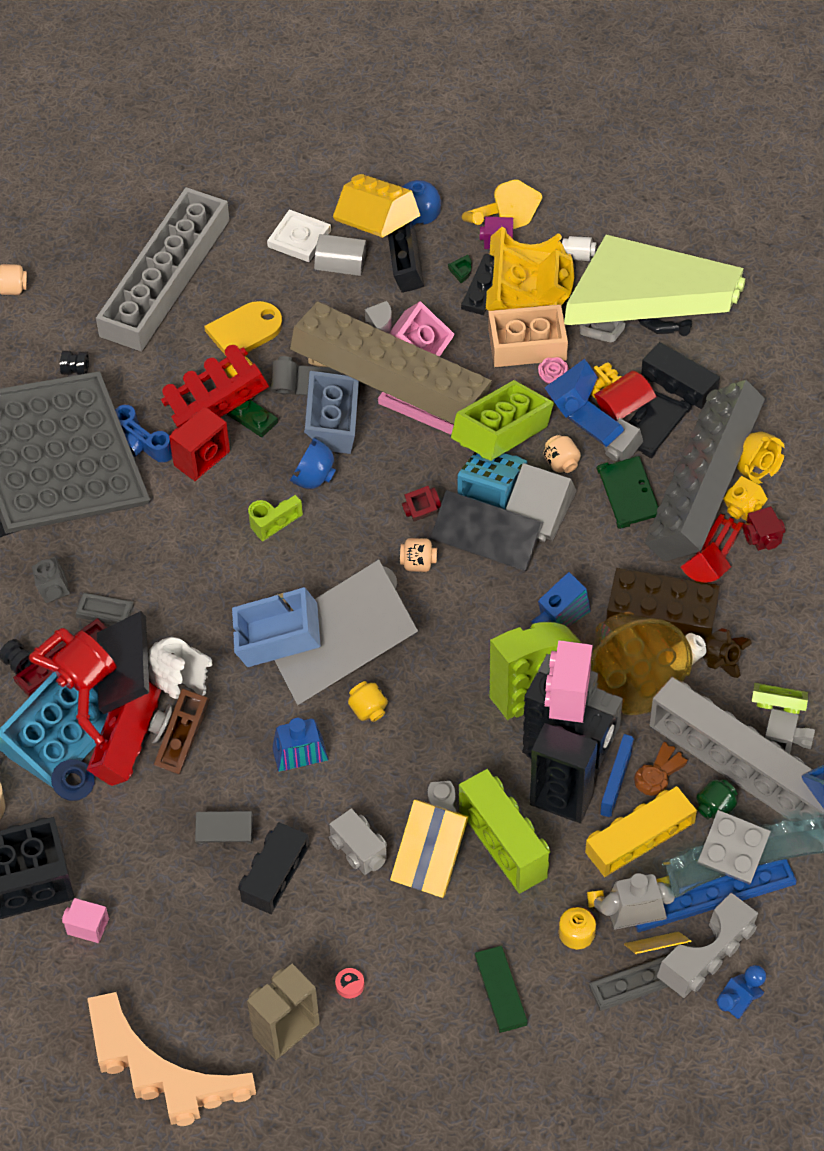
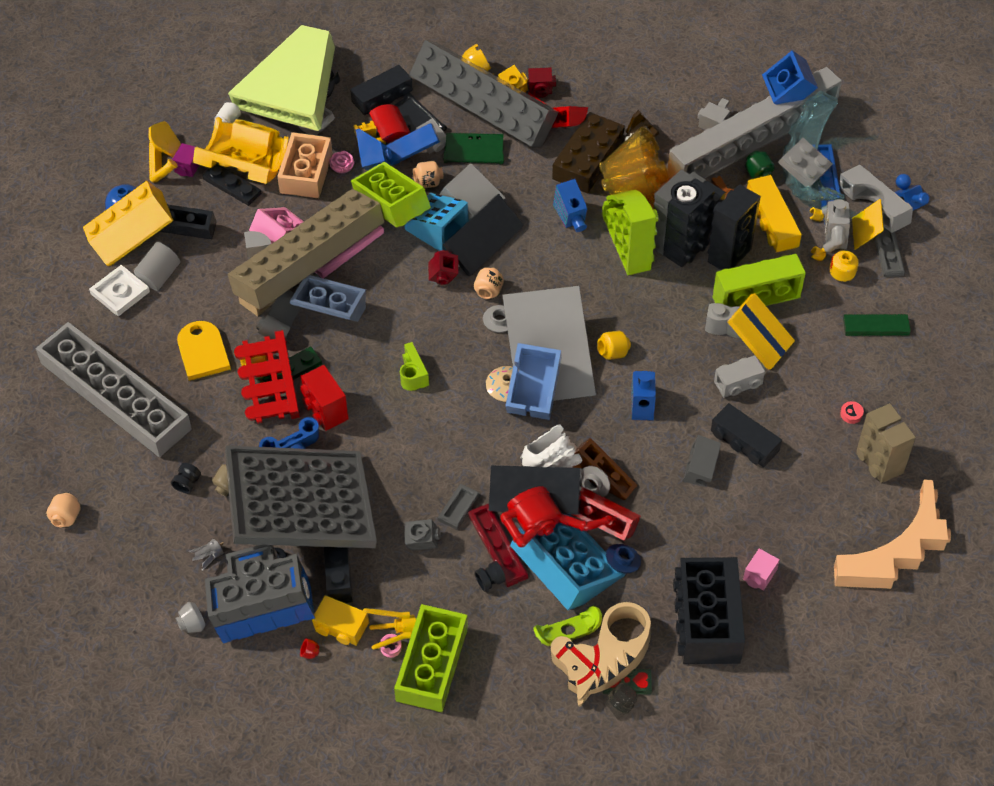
camera: 75 degrees left, 0 degrees up
(314, 466) = (370, 326): blue cylinder -> none
(461, 268) = (208, 195): dark green tile -> none
(568, 681) = (698, 175): bright pink brick -> none
(790, 699) = (690, 108): lime plate -> none

